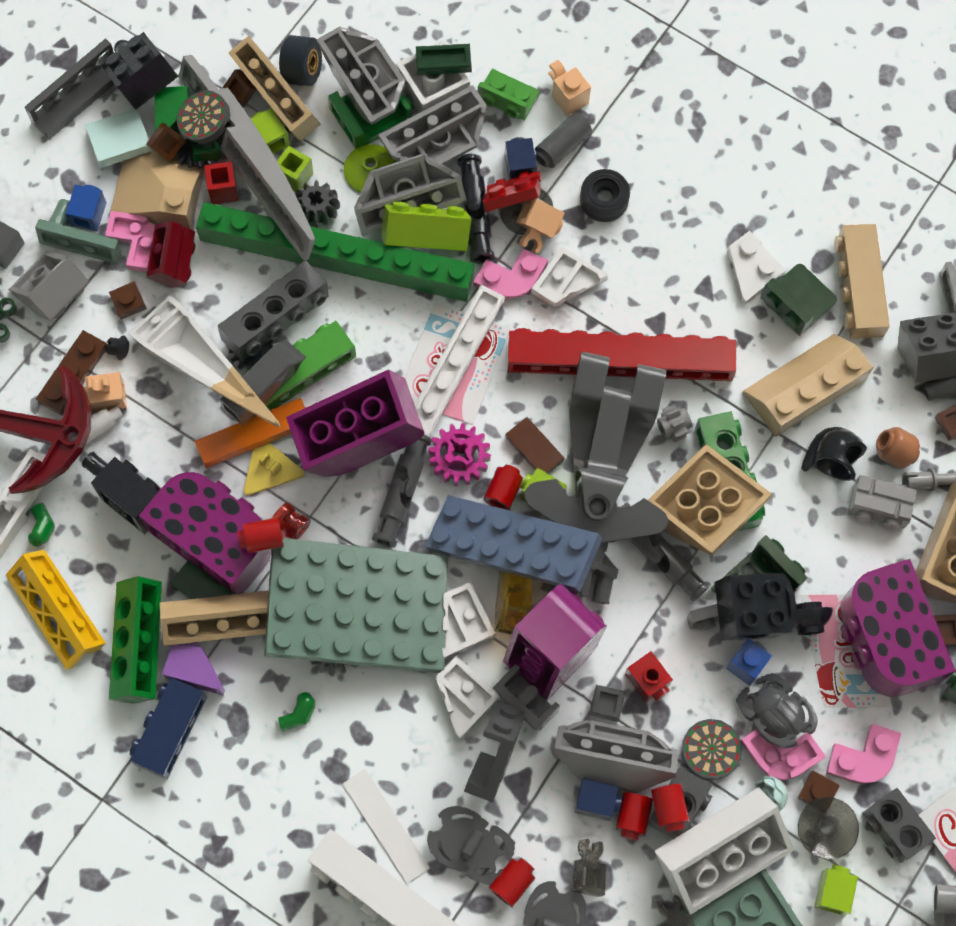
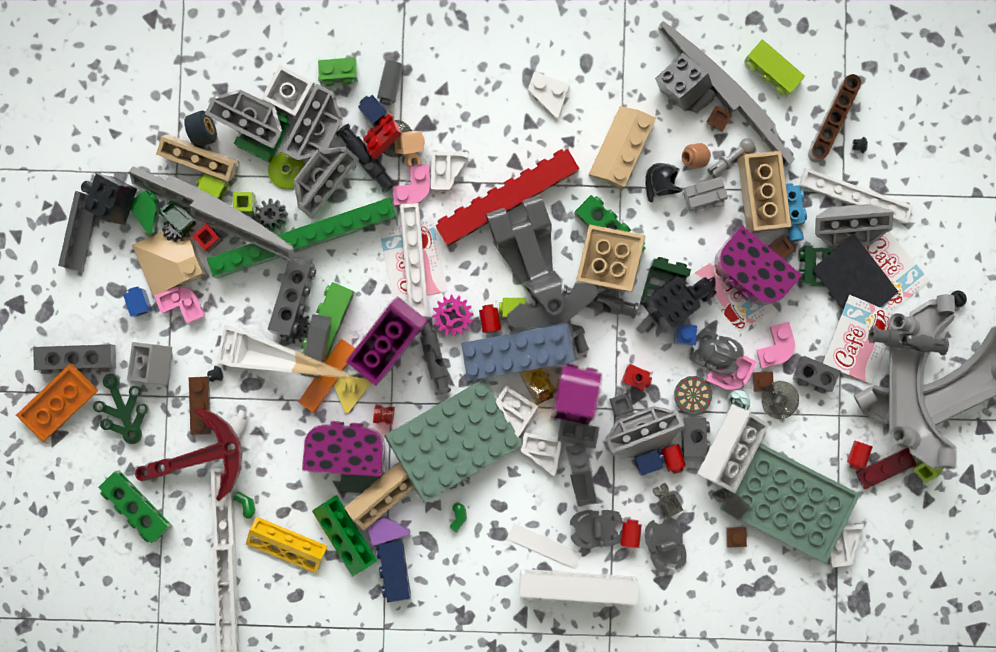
camera: 30 degrees left, 15 degrees up
(58, 235) = (132, 330): sand green piece -> none
(106, 391) = (228, 406): light nougat brick -> none
(118, 137) = (125, 246): light aqua tile -> none
(121, 487) = (278, 457): black brick -> none
(127, 300) = (201, 342): reddish brown plate -> none
(166, 142) = (158, 234): reddish brown plate -> none
(171, 254) = (208, 301): dark red brick -> none
(203, 117) = (170, 206): dark grey tile -> none
(240, 87) = (175, 169): reddish brown plate -> none
(261, 535) = (379, 440): red brick -> none
(426, 226) = (346, 191): lime brick -> none
(443, 59) = (288, 78): dark green tile -> none
(534, 446) = (491, 283): reddish brown tile -> none
(569, 88) = (373, 46): light nougat brick -> none
(604, 180) = (428, 94): black tyre -> none
(670, 807) = (692, 445): red brick -> none
(674, 423) = (562, 220): light grey gear -> none
(798, 298) = (587, 97): dark green bracket -> none
(836, 890) = (803, 430): lime brick -> none
(862, 281) = (618, 63): tan brick -> none

